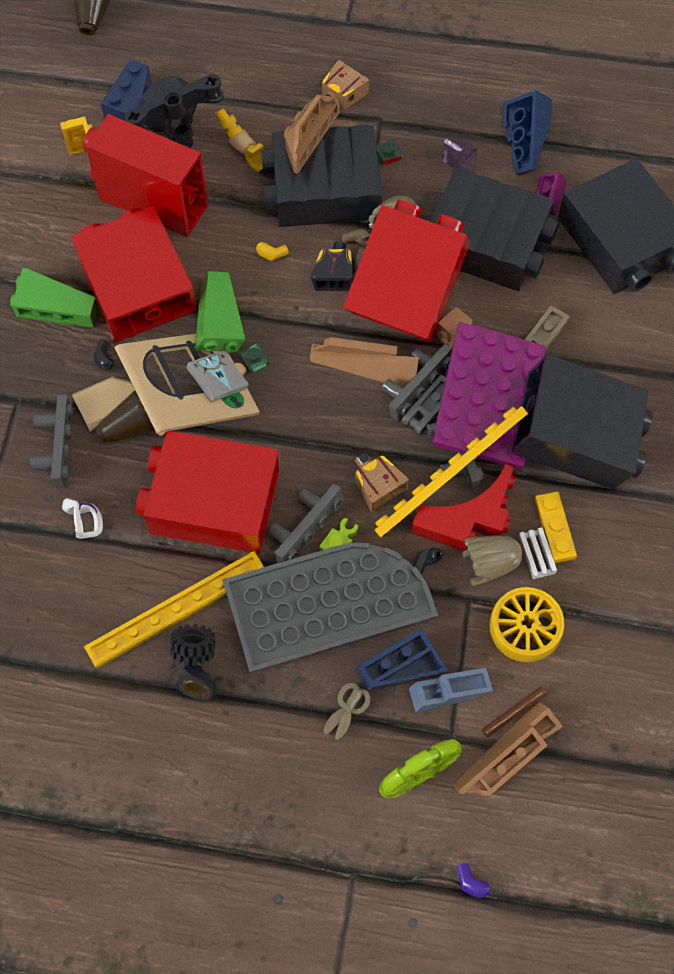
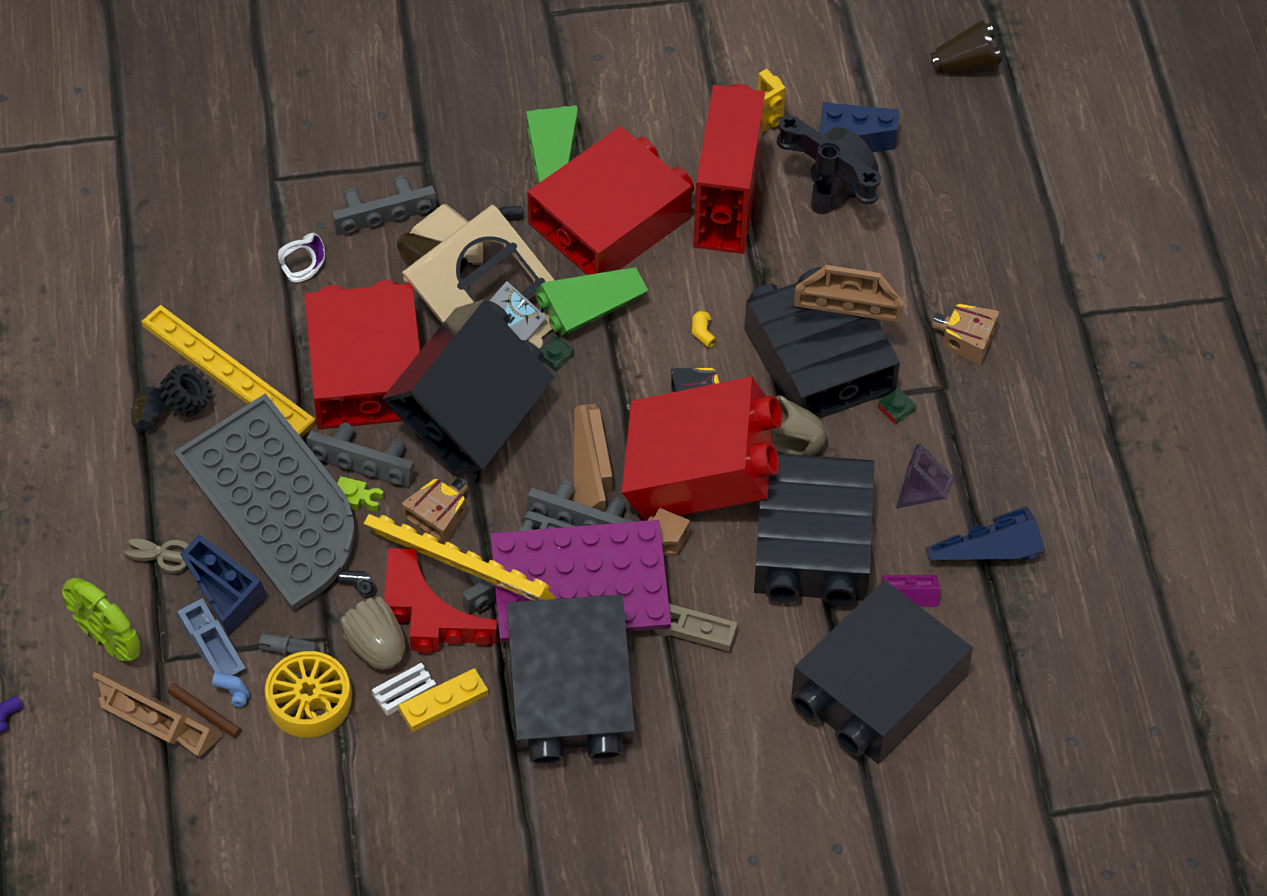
camera: 70 degrees right, 10 degrees down
(241, 140) = (845, 248): yellow piece -> none
(289, 415) = (469, 387): none -> black brick
(473, 629) = (285, 645): none -> dark grey axle
(501, 681) = (234, 685): none -> medium blue arm

